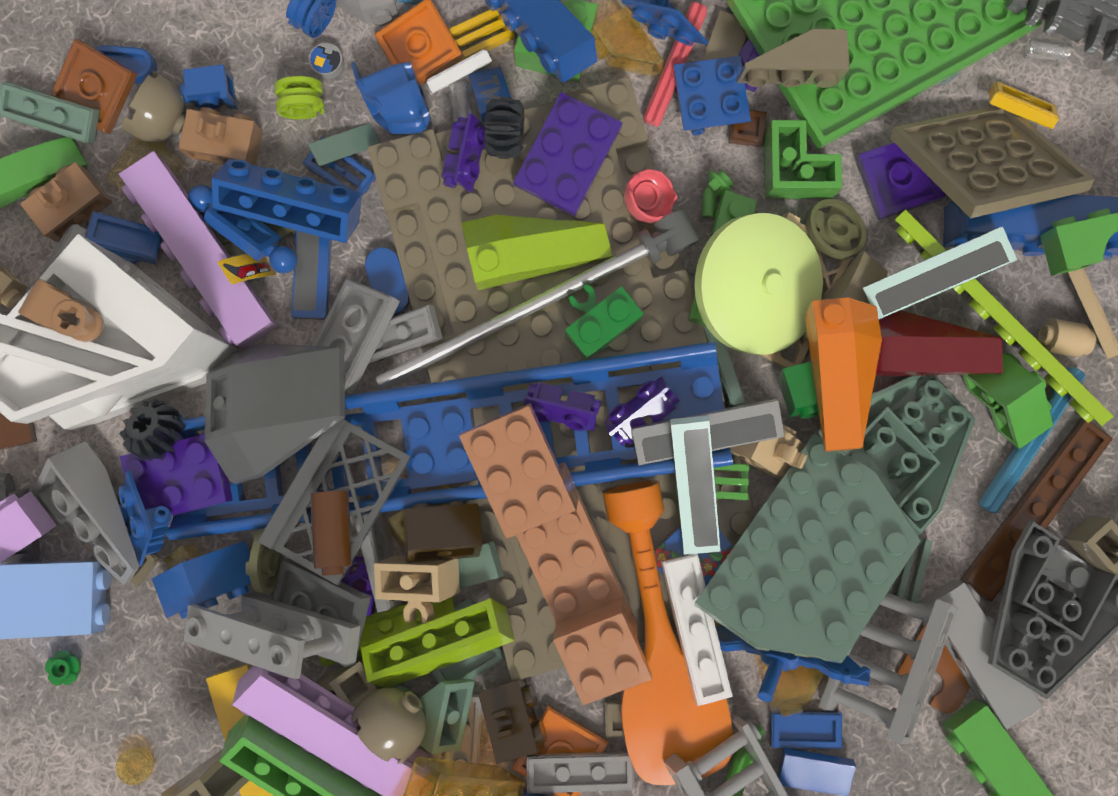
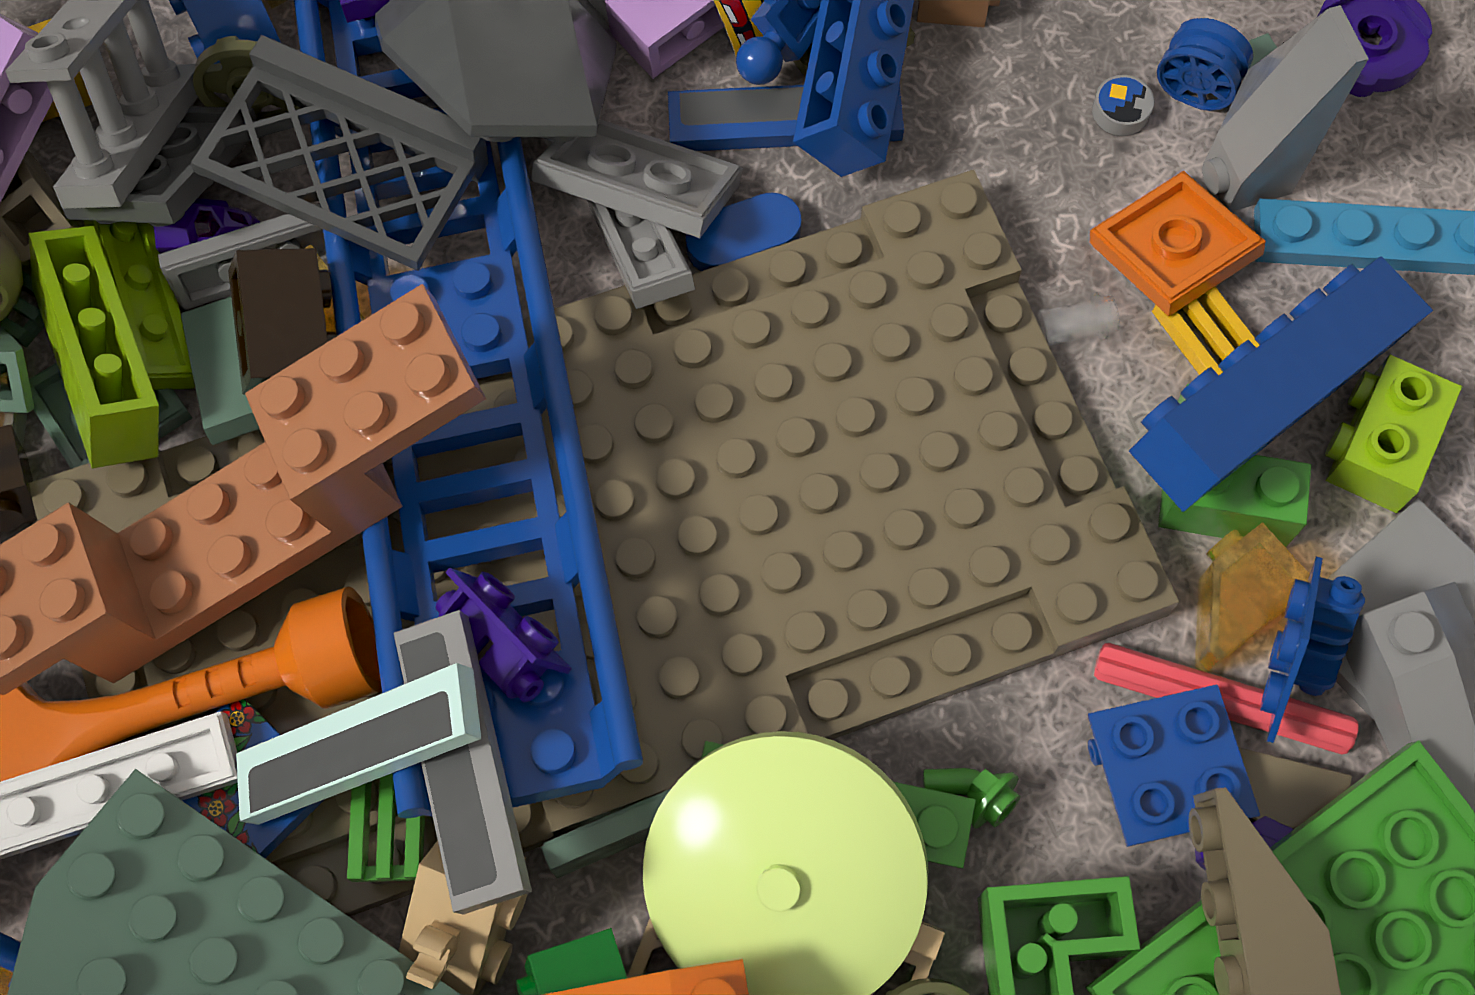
camera: 90 degrees right, 15 degrees down
(299, 97) = (1045, 61): lime wheel -> none
(331, 532) = (273, 137): reddish brown brick -> none
(343, 144) = (977, 142): sand green sticker -> none
(362, 186) = (958, 104): blue tile -> none
(395, 98) = (1066, 201): blue piece -> none
(416, 583) = (193, 301): tan brick -> none
(458, 71) = (1136, 305): white tile -> none
(464, 168) = (990, 320): dark purple hinge -> none
(488, 85) = (1102, 362): blue tile -> none
(504, 128) = (1029, 364): black gear -> none
(521, 248) = (816, 428): lime wedge -> none
(568, 154) = (1003, 494): dark purple plate -> none
(576, 413) = (498, 520): dark purple hinge -> none
(602, 321) = (680, 568): green brick -> none
(649, 196) = (936, 640): coral hair -> none
(672, 234) = (865, 690): flat silver piece -> none
(751, 132) = (1110, 857): reddish brown tile -> none

